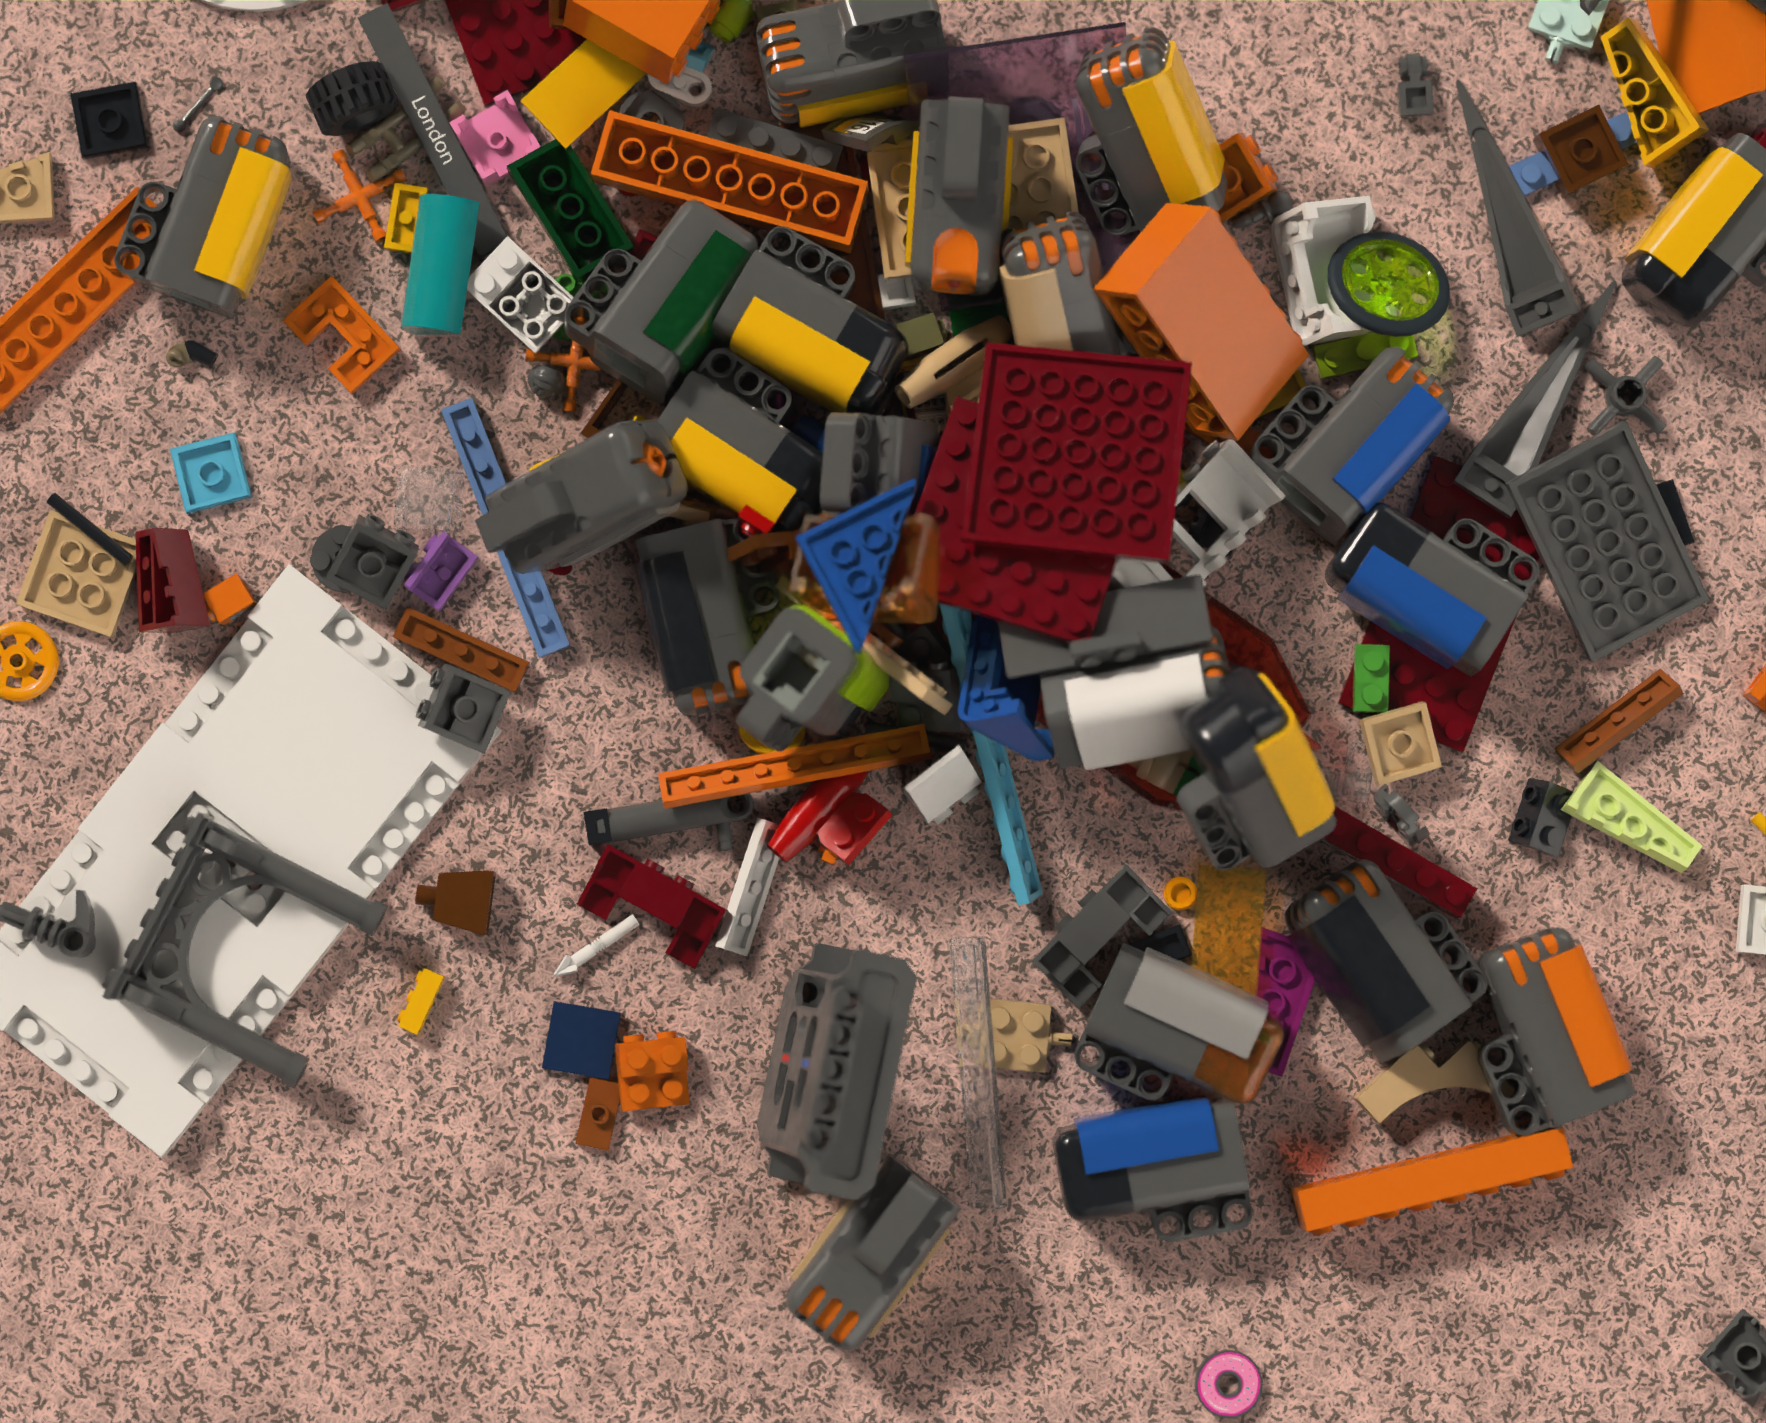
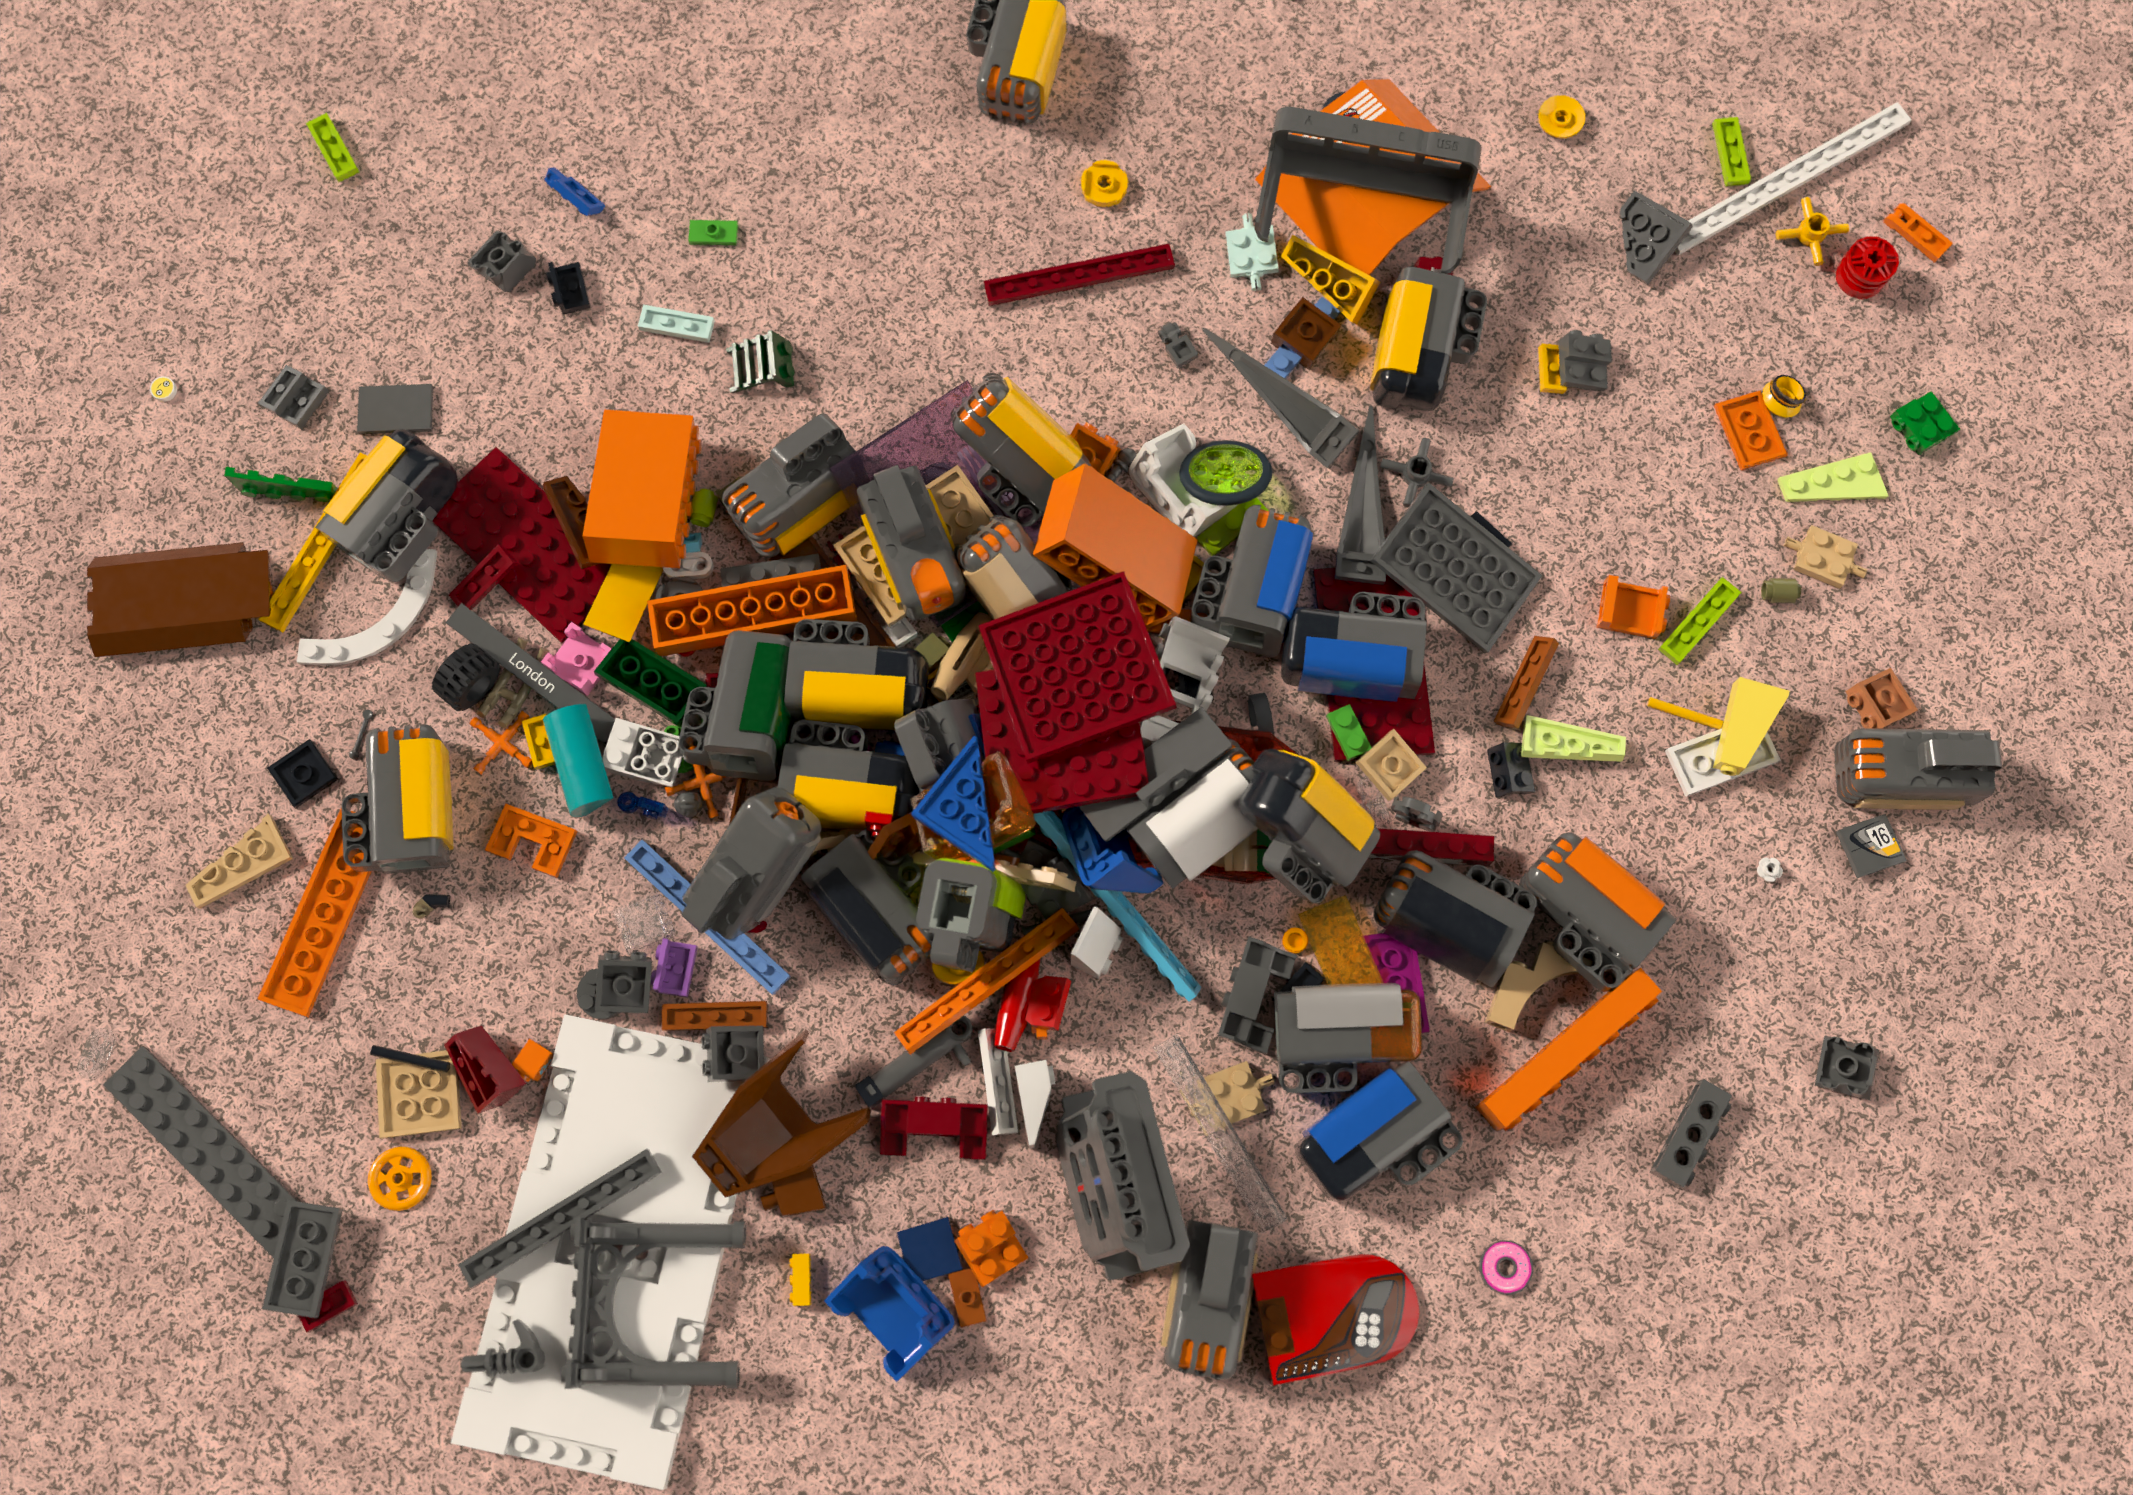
camera: 20 degrees left, 10 degrees down
(180, 799) = (559, 1218): none -> dark grey plate
(210, 473) = (480, 979): medium azure tile -> none
(461, 820) = (767, 1132): none -> reddish brown windscreen
(499, 364) = (650, 808): none -> clear blue plate
(510, 1085) = (893, 1308): none -> blue windscreen
(571, 963) = (895, 1199): white piece -> none
(787, 922) = (1035, 1090): none -> white slope
(869, 130) = (830, 534): dark grey slope -> none
(1004, 1339) = (1334, 1315): none -> windscreen
(1275, 607) = (1260, 712): none -> black tyre
(1474, 1362) = (1718, 1104): none -> dark grey brick

